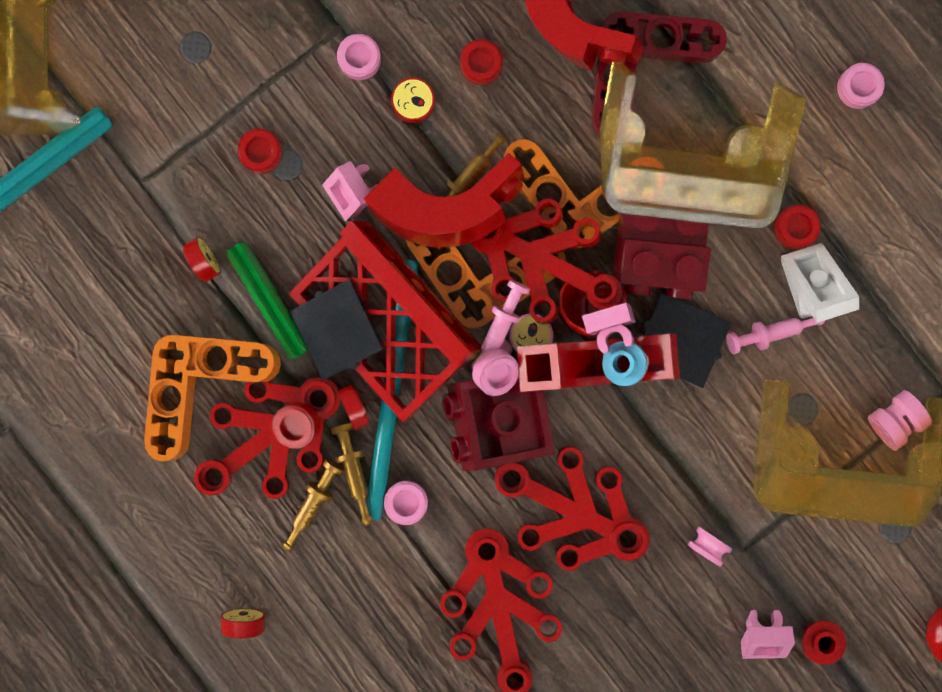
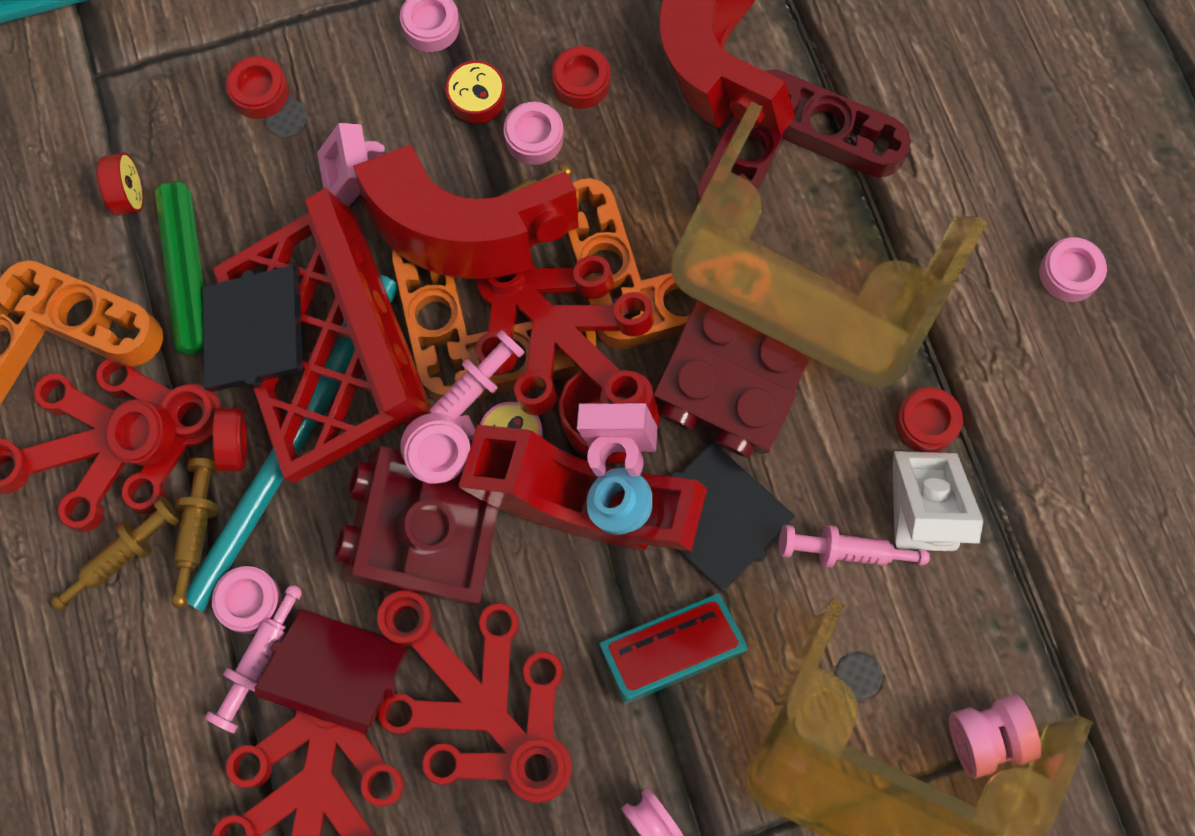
camera: 20 degrees right, 15 degrees down
(428, 540) = (253, 663): none -> bright pink piece
(464, 116) = (533, 133): none -> bright pink tile
(481, 528) = (331, 671): none -> dark red piece
(684, 436) = (673, 648): none -> red slope

